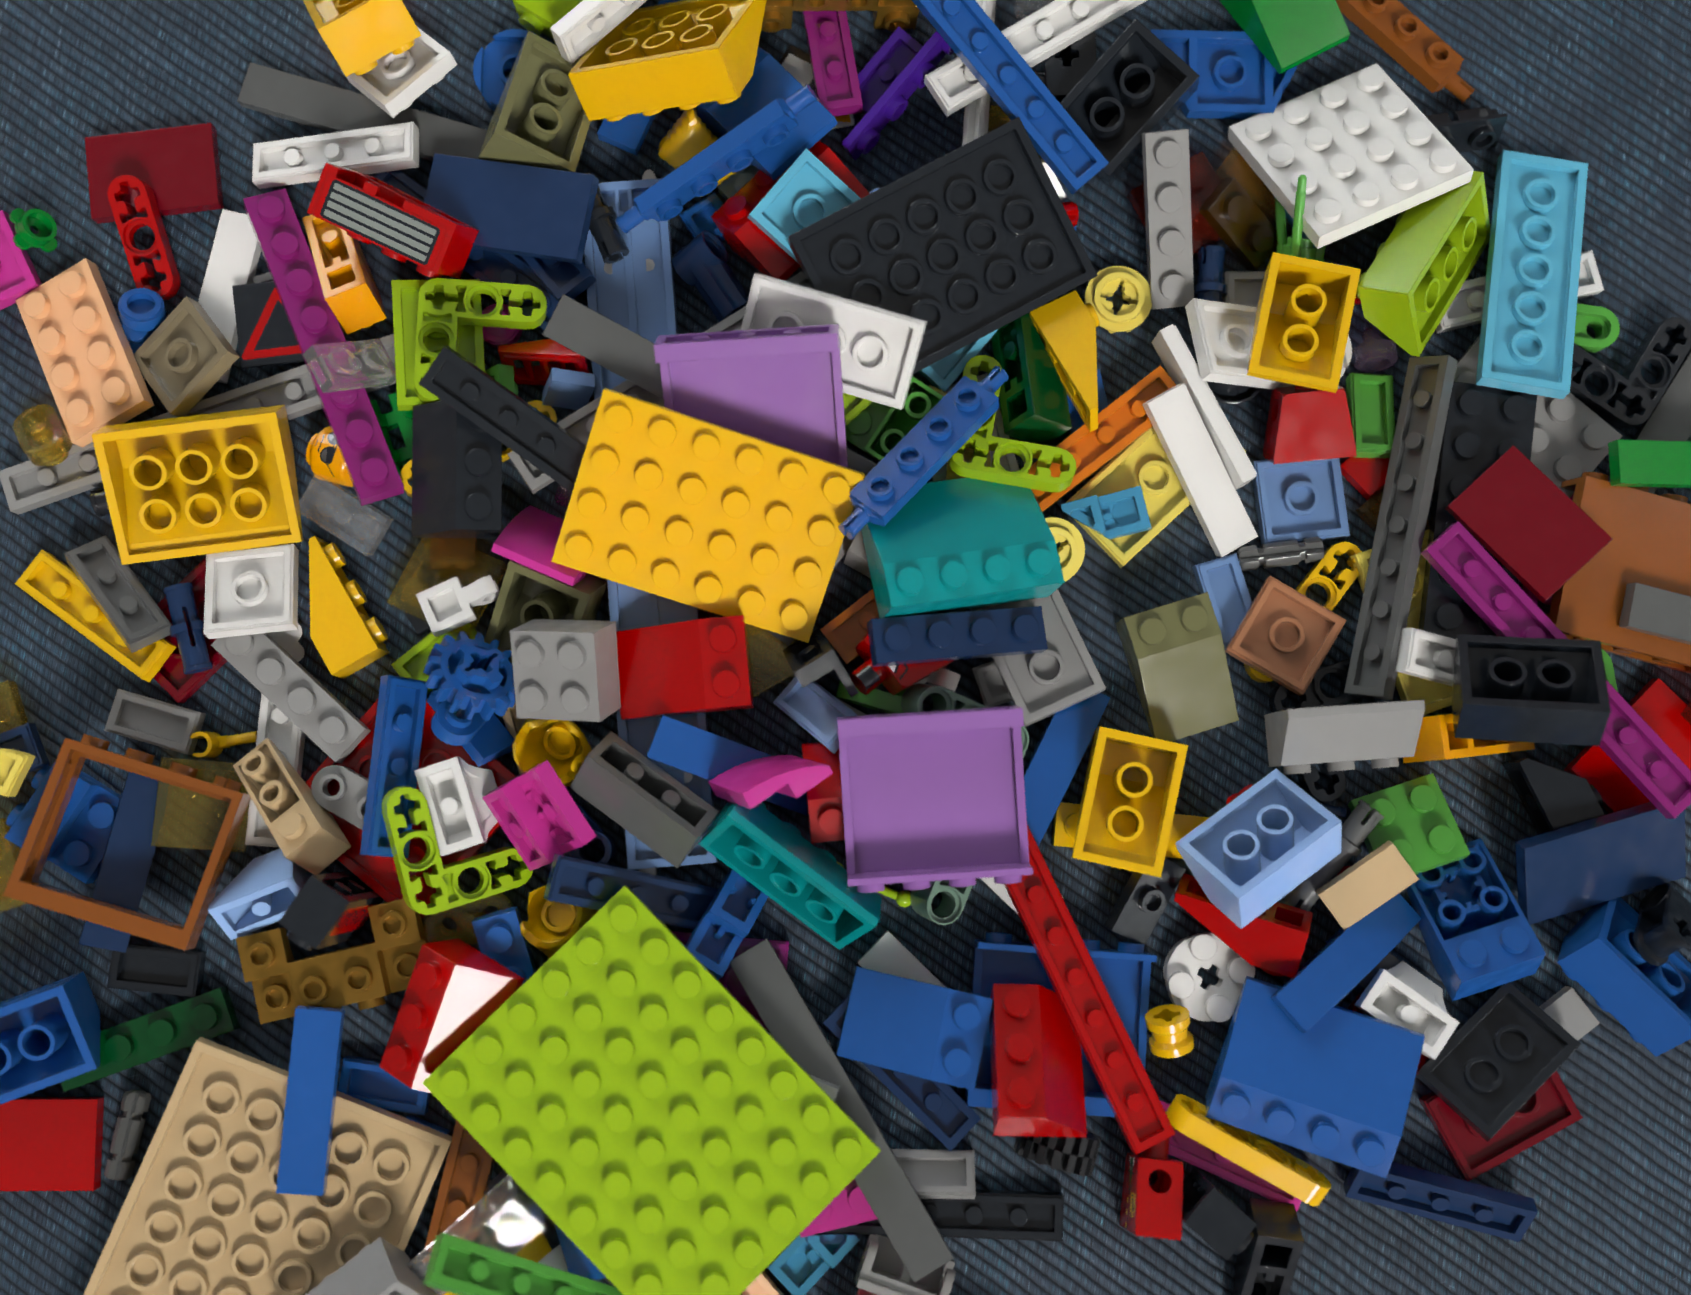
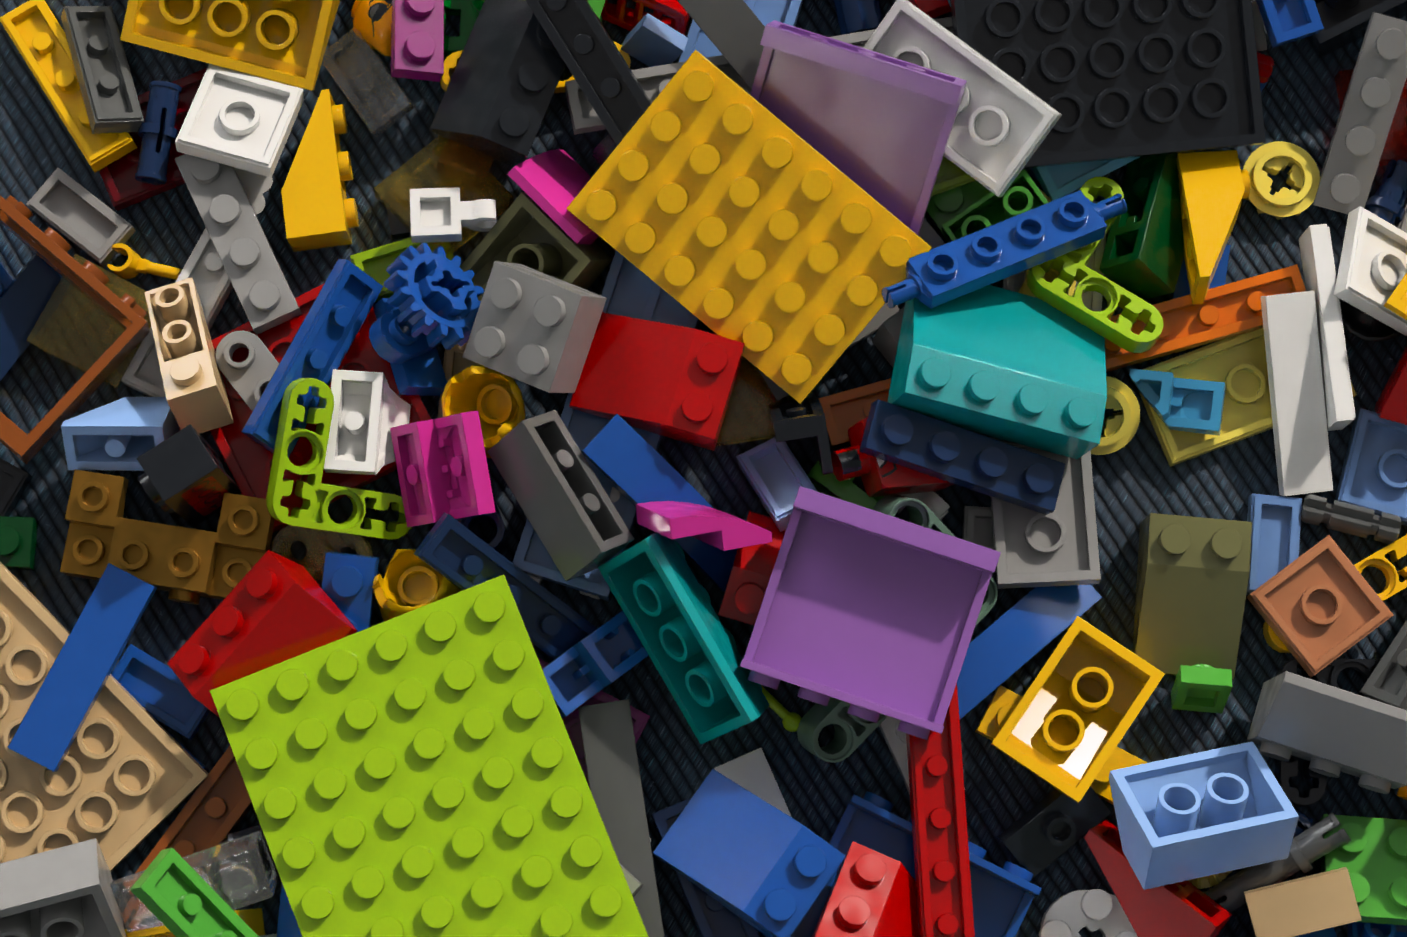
camera: 25 degrees right, 5 degrees down
(1217, 739) = (1201, 688): none -> bright green plate

